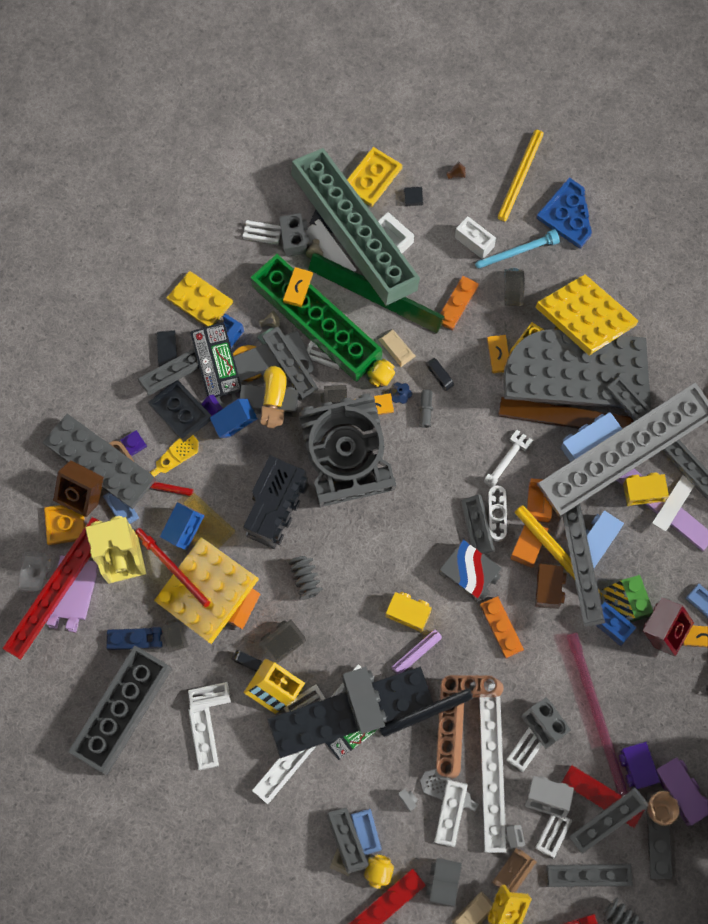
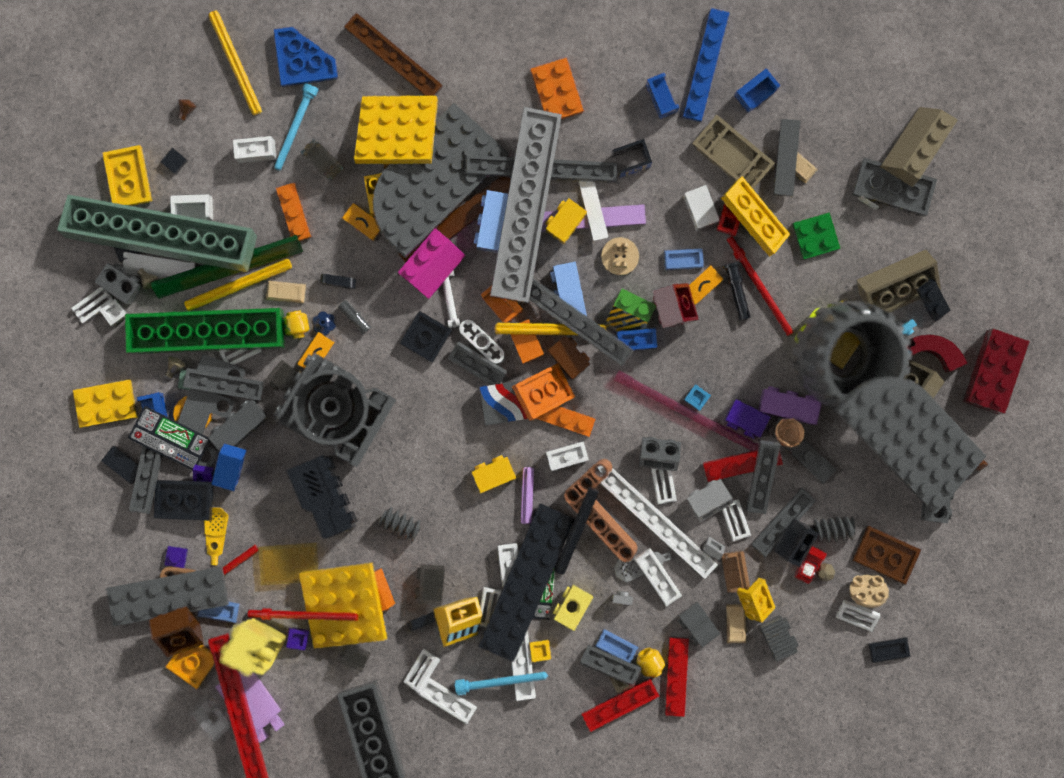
camera: 50 degrees left, 15 degrees up
(128, 638) = (328, 688): dark blue plate -> none
(150, 581) = (297, 638): none -> dark purple plate
(182, 526) = (277, 580): blue panel -> none
(225, 740) = (463, 686): none -> medium azure piece
(269, 248) = (113, 312): none -> white plate
(274, 394) = (241, 423): yellow piece -> none
(298, 287) = (169, 324): light orange tile -> none
(307, 773) = (540, 650): none -> yellow plate
(323, 878) = (620, 704): none -> red plate
(356, 775) = (569, 618): none -> light yellow brick
(363, 700) = (528, 568): dark grey brick -> none
(371, 312) = (238, 284): none -> yellow axle
(461, 470) = (426, 336): none -> black plate
(475, 652) = (567, 456): none -> white panel
(506, 589) = (543, 391): none -> orange plate
(518, 424) = (431, 263): none -> dark pink slope
(584, 899) = (796, 542): none -> black brick
(616, 712) = (697, 397): none -> dark azure plate
(634, 269) = (393, 56): none -> reddish brown plate
(654, 560) = (620, 247): none -> tan plate

